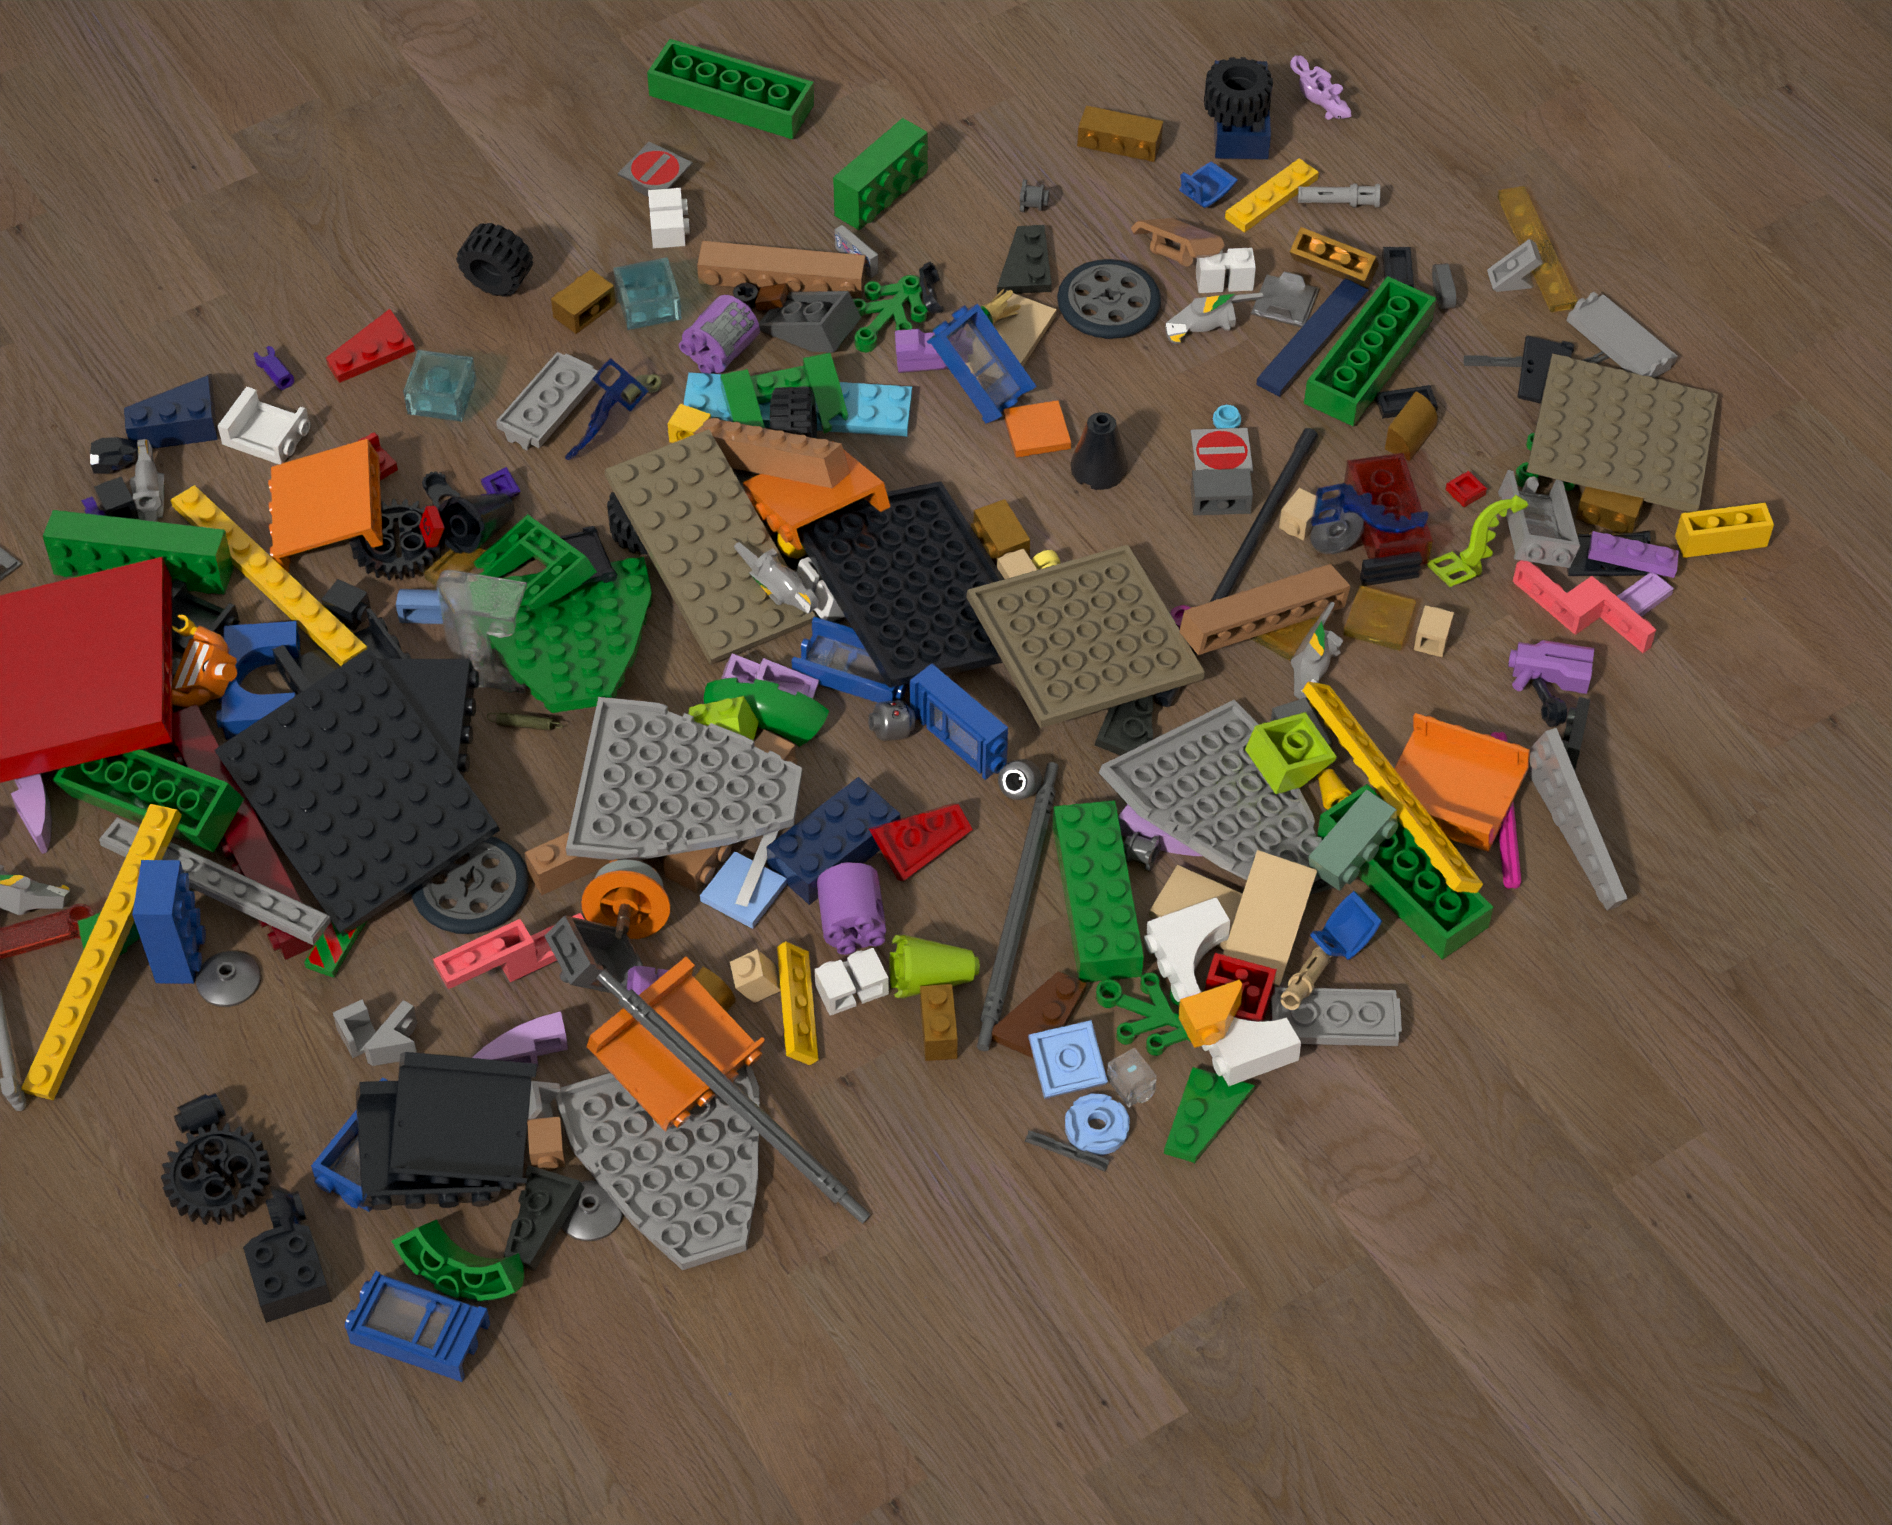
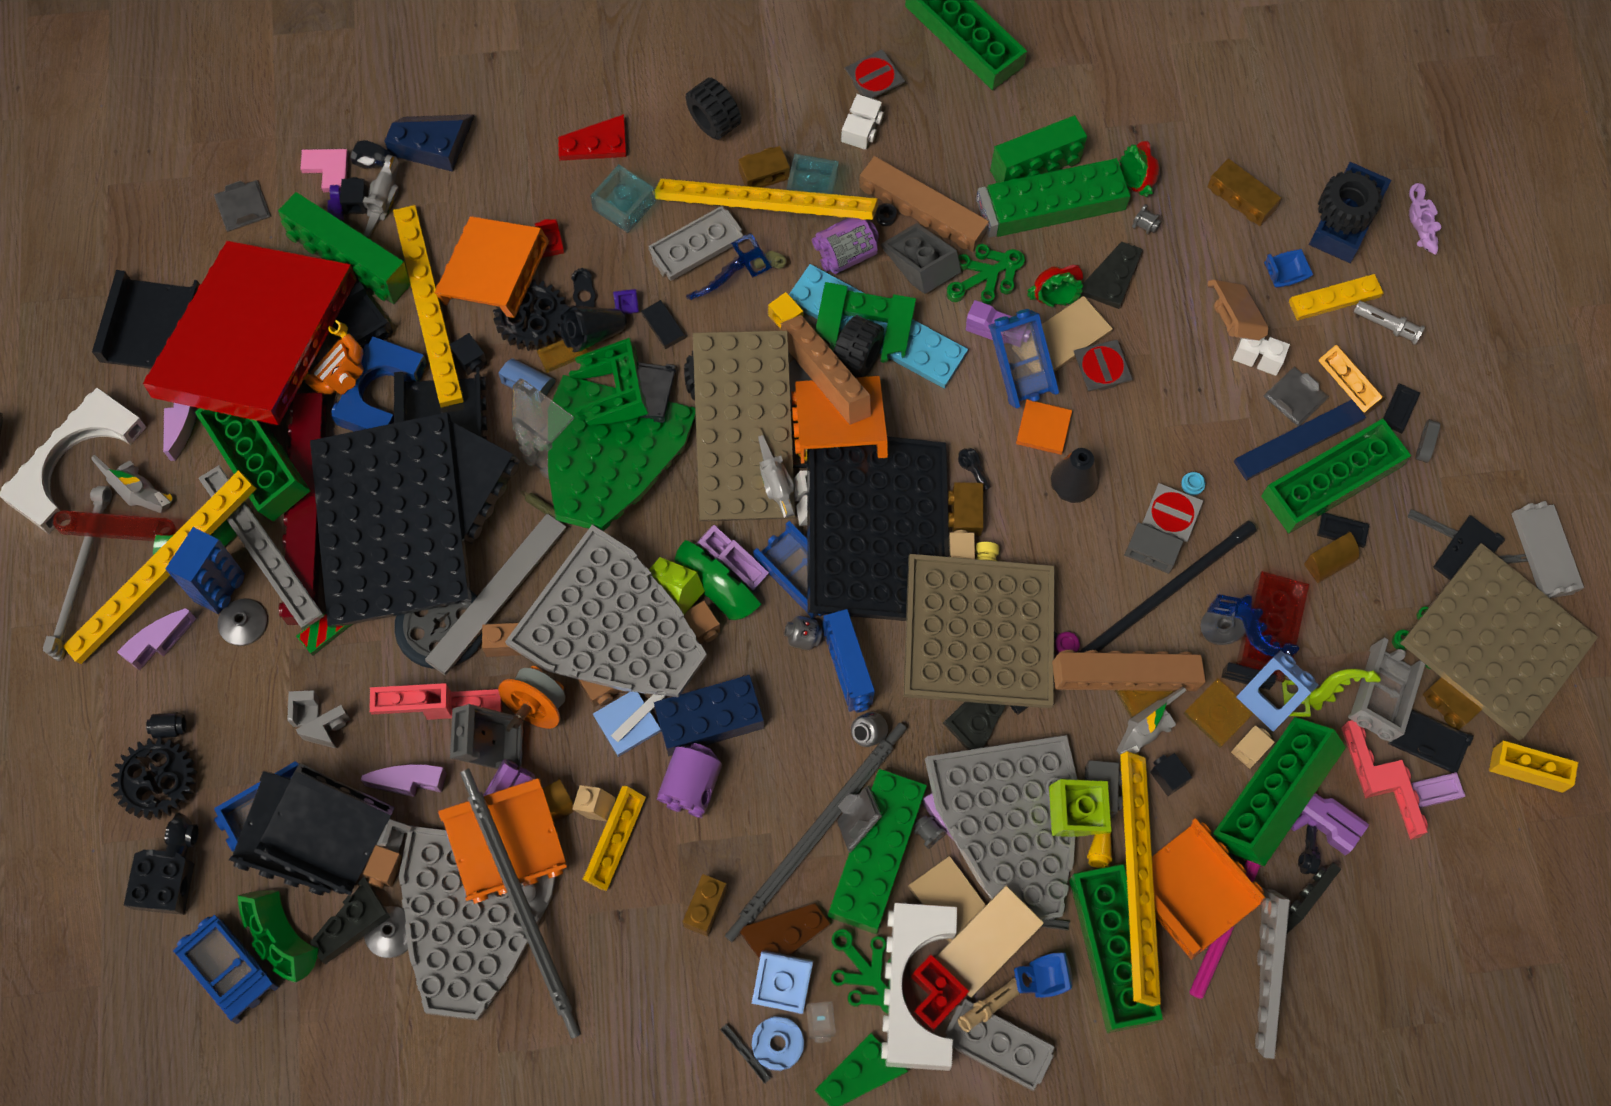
camera: 25 degrees right, 15 degrees up
(63, 482) = (330, 162): none -> bright pink tile
(134, 1032) = (157, 637): none -> lavender slope
(262, 428) = (485, 177): white panel -> none
(275, 369) = (518, 130): dark purple bar -> none
(431, 526) = (554, 319): red tile -> none
(519, 825) = (495, 594): none -> light grey tile
(555, 493) = (663, 324): none -> black tile
(607, 321) = (766, 199): none -> yellow plate
(771, 297) = (903, 224): reddish brown tile -> none
(858, 974) = (648, 837): white piece -> none
(920, 838) = (771, 743): red wing -> none
(927, 964) = (721, 856): lime cone -> none
(928, 207) = (1059, 197): none -> green brick
(929, 276) = (1030, 256): black piece -> none
(974, 286) = (1057, 286): none -> green hair
(977, 489) = (970, 461): none -> black plate
(997, 150) = (1140, 168): none -> green hair
(998, 307) = (1060, 309): pearl gold piece -> none
(1058, 861) = (858, 816): none -> flat silver piece
(1067, 346) = (1102, 365): none -> piece
(1100, 325) = (1178, 316): wedge -> none
(1206, 315) = (1223, 386): light grey animal -> none
(1210, 1013) = (893, 1013): light orange slope -> none
(1297, 514) = (1202, 595): tan brick -> none
(1354, 840) = (1083, 914): sand green brick -> none
(1364, 690) = (1170, 773): none -> black brick
(1419, 586) = (1262, 706): none -> medium blue window
(1466, 488) = (1348, 629): red tile -> none
(1486, 651) = (1279, 790): none -> green brick
(1515, 268) = (1494, 451): light grey slope -> none
(1527, 225) = (1523, 438): clear yellow tile -> none
(1633, 554) = (1448, 753): medium lavender plate -> none

